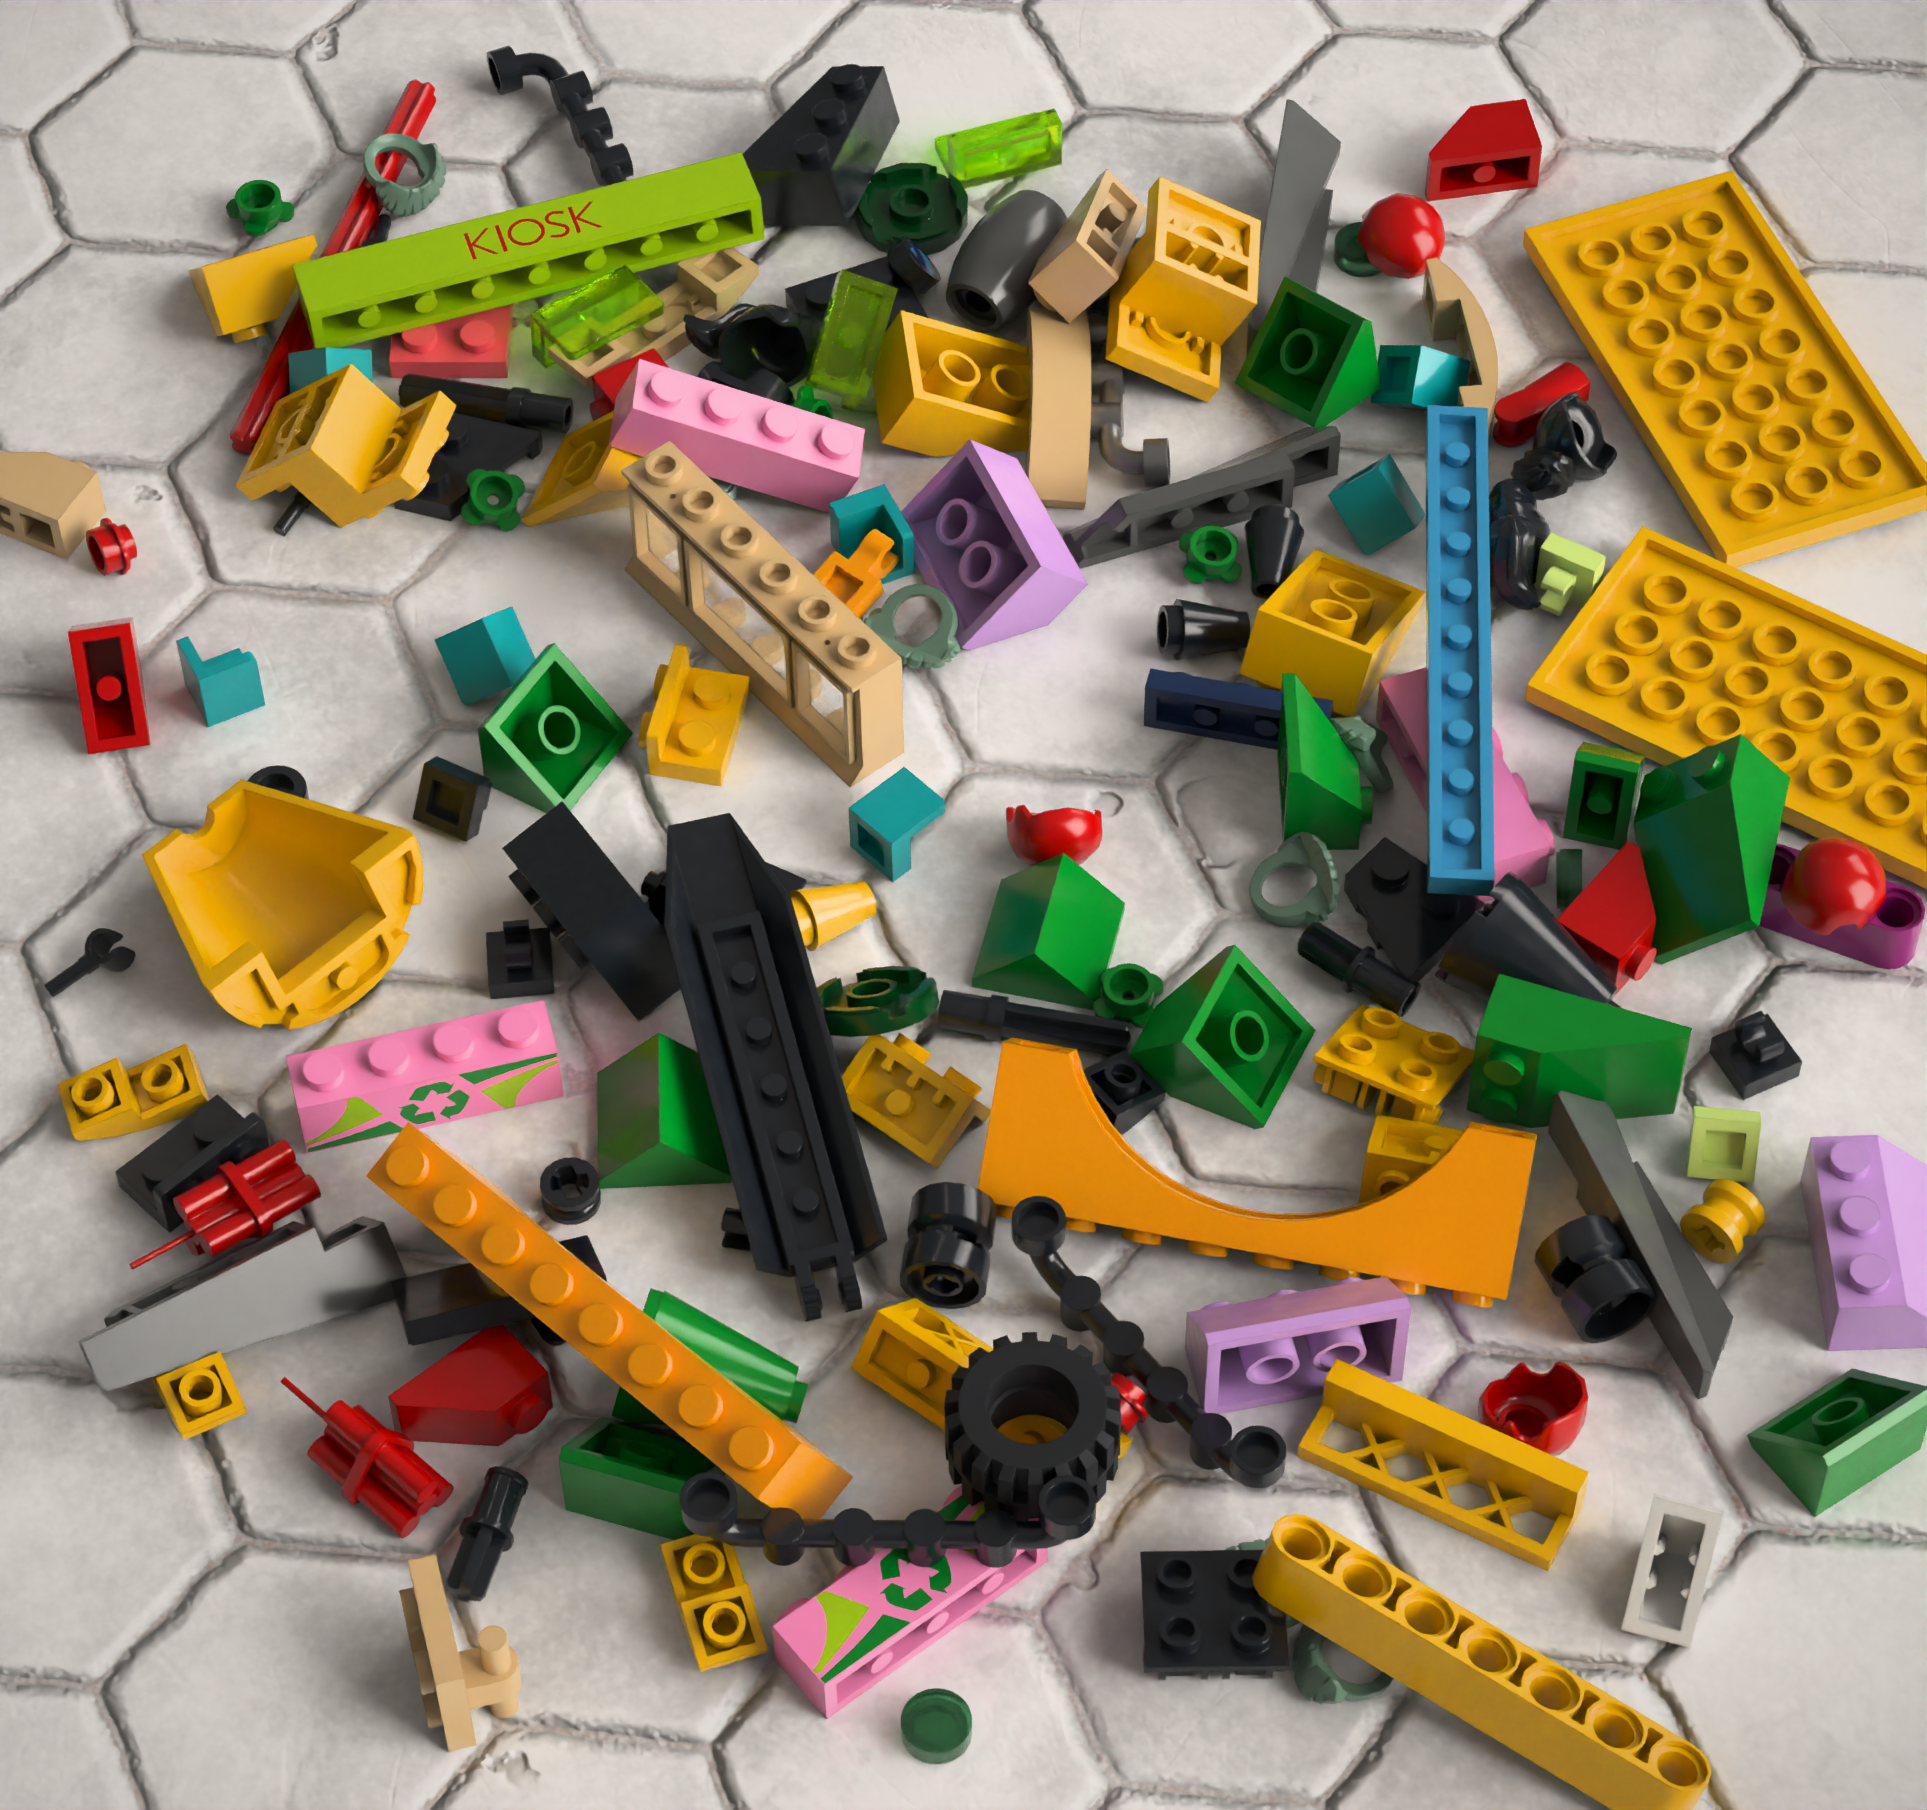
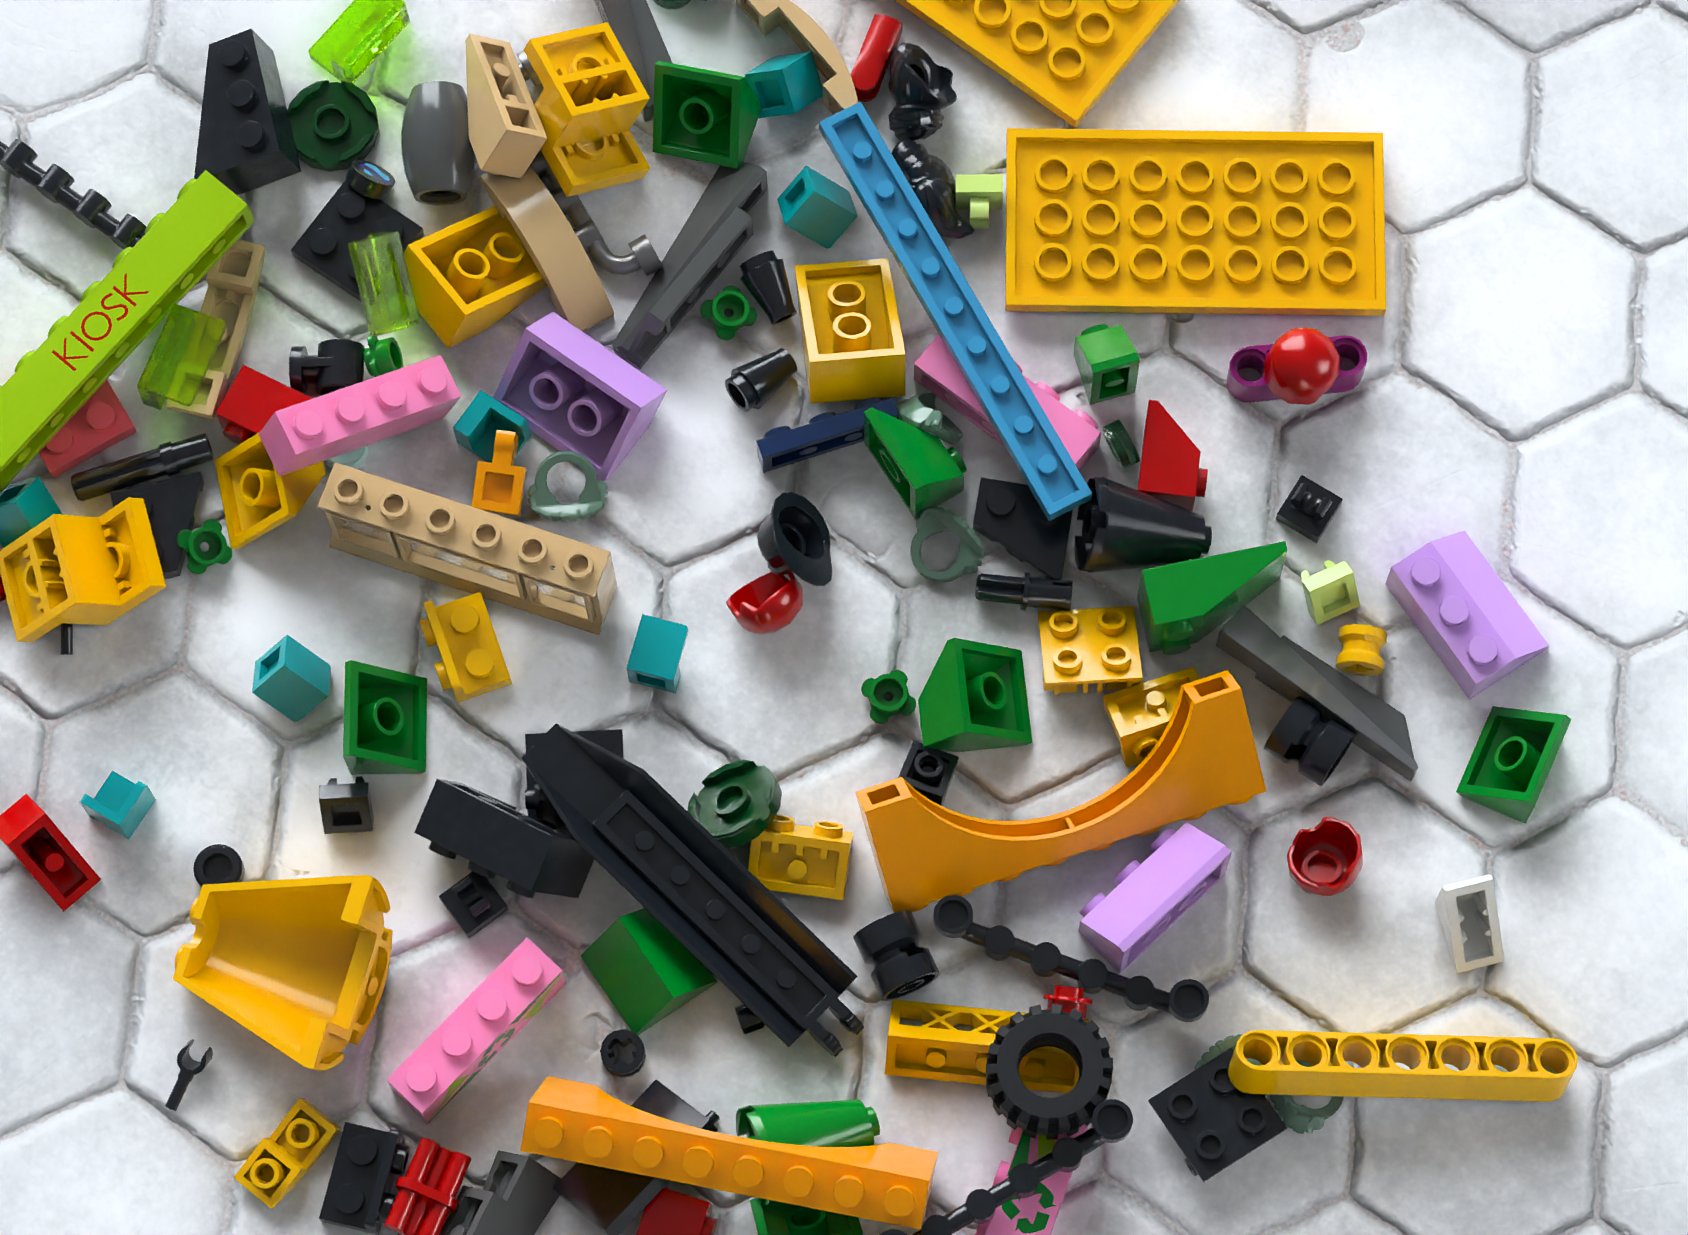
camera: 30 degrees left, 20 degrees up
(758, 338) = (309, 310): black hair -> none
(831, 911) = (656, 745): yellow cone -> none
(999, 1018) = (819, 762): black axle -> none
(1050, 935) = (808, 680): green slope -> none
(1130, 783) = (796, 540): none -> black piece
(1451, 1443) = (1290, 909): yellow fence -> none
(1709, 843) = (1204, 376): green slope -> none

